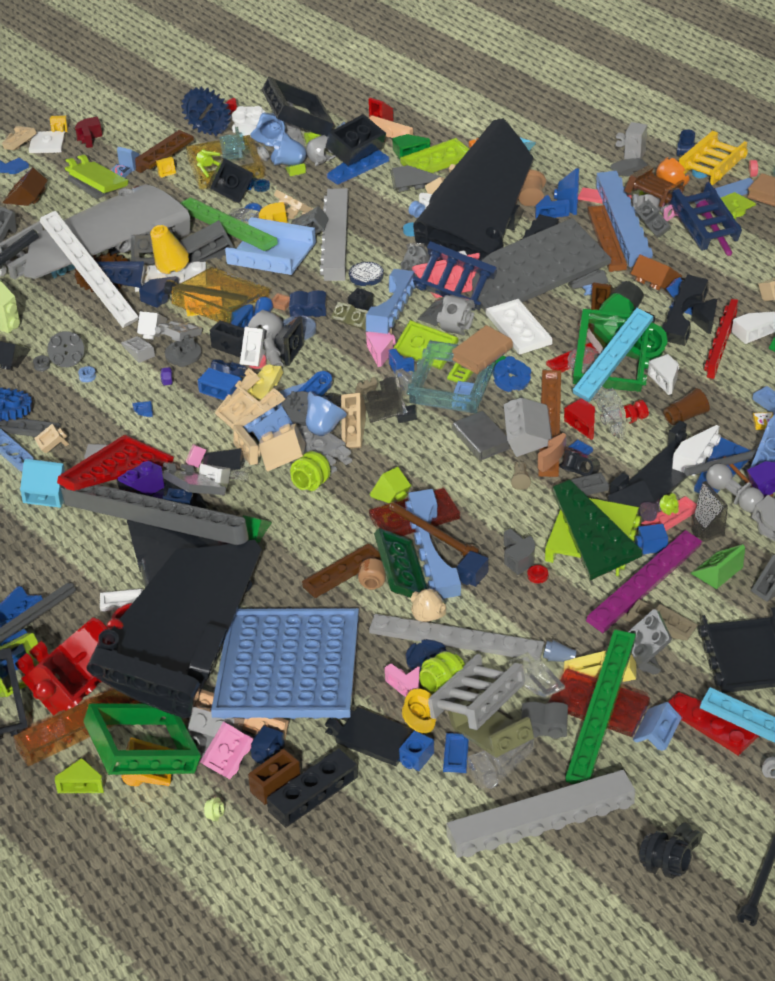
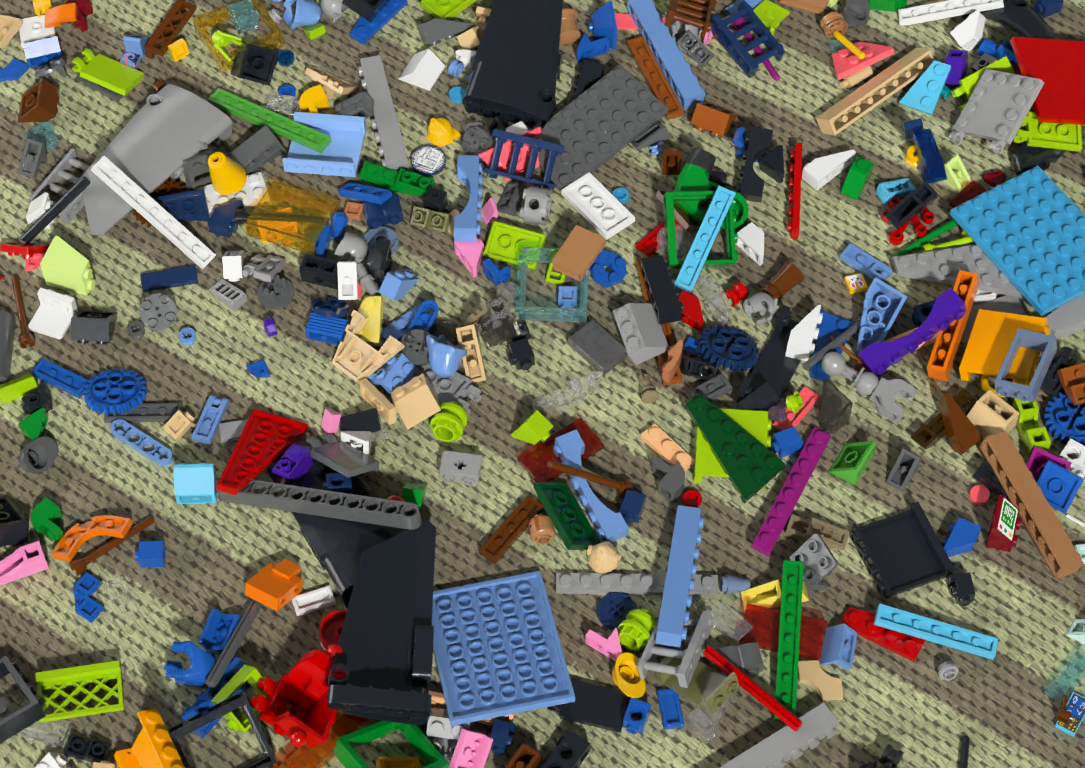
camera: 15 degrees left, 15 degrees up
(22, 213) = (46, 137): none -> clear light blue plate
(45, 155) = (42, 51): none -> brick
(51, 164) = (55, 65): none -> dark grey plate
(70, 127) = (57, 15): none -> orange slope
(80, 439) = (210, 419): none -> medium blue plate
(87, 576) = (275, 584): none -> orange piece
(91, 329) = (169, 278): none -> dark blue tile
(295, 286) = (365, 193): none -> blue tile
(300, 359) = (398, 283): none -> medium blue slope
(309, 511) = (468, 463): none -> light grey brick
(334, 284) = (400, 182): none -> green slope
(386, 207) = (423, 70): none -> white slope
(386, 253) = (441, 132): none -> yellow piece
(401, 430) = (521, 354): none -> black brick
(411, 315) = (490, 211): none -> bright pink slope
(445, 468) = (576, 392): none -> clear slope
(499, 631) = (678, 576): none -> medium blue brick
(524, 525) = (666, 447): none -> light nougat plate
(545, 321) = (621, 195): none -> dark azure tile
(550, 744) = (753, 688): none -> red axle
(558, 392) = (661, 289): none -> black brick
(614, 451) = (741, 354): none -> dark blue gear
(634, 761) = (828, 686): none -> tan tile
(657, 421) = (761, 303): none -> light grey helmet

